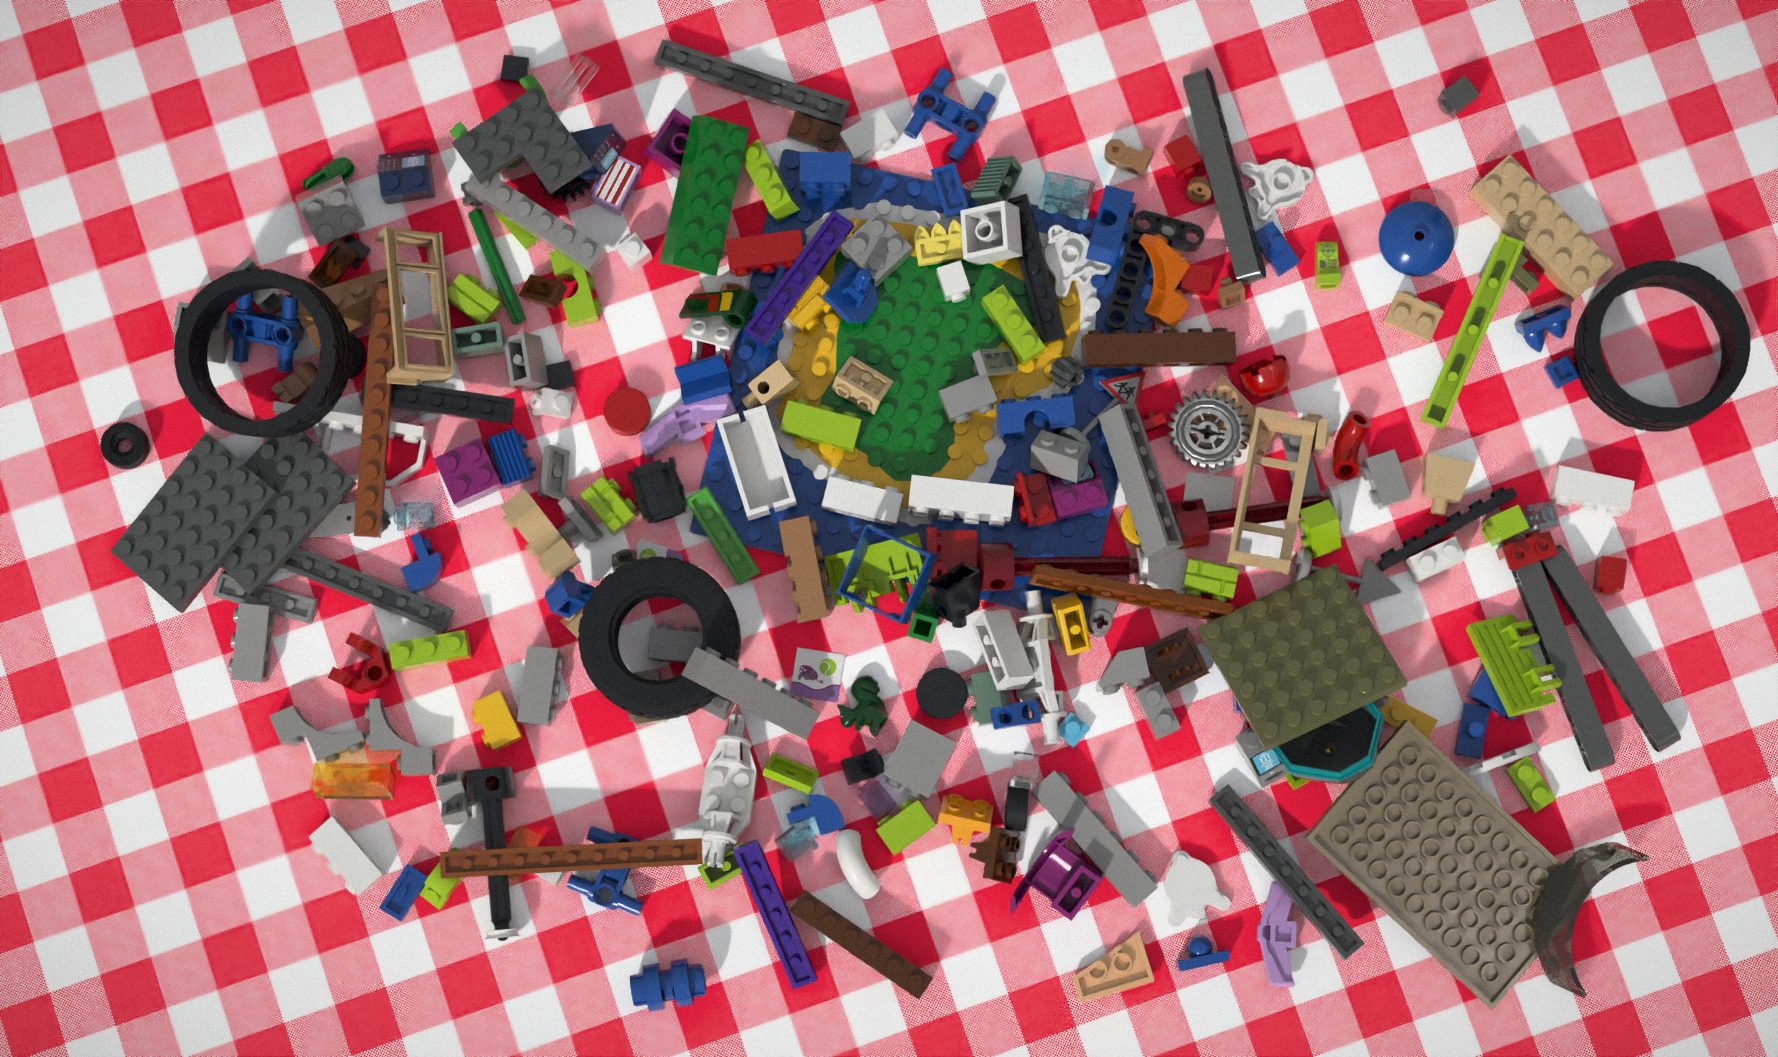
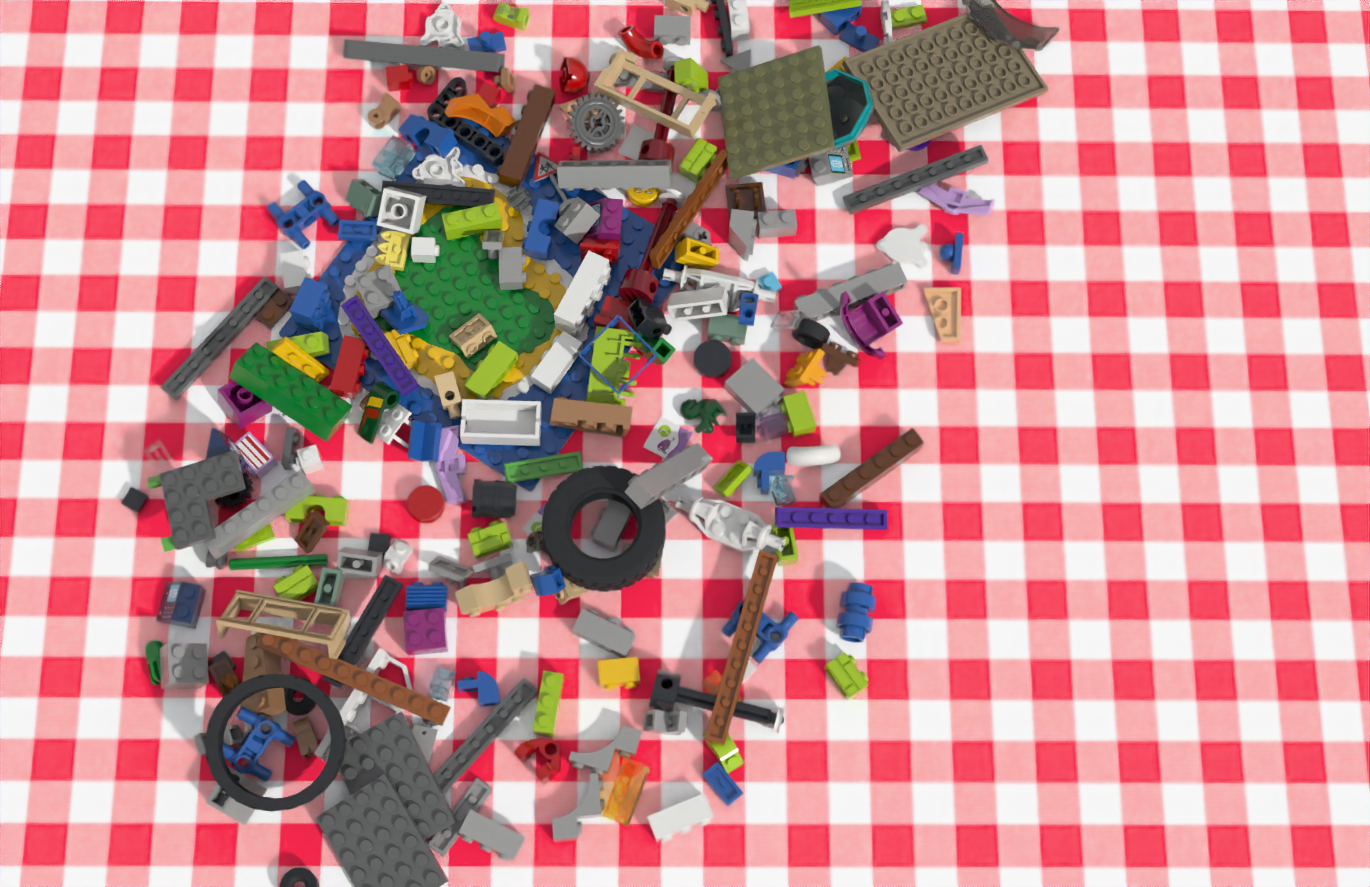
camera: 75 degrees left, 10 degrees down
(586, 999) = (846, 675): none -> lime brick
(648, 220) = (289, 454): none -> dark grey plate
(749, 190) = (300, 359): none -> yellow tile

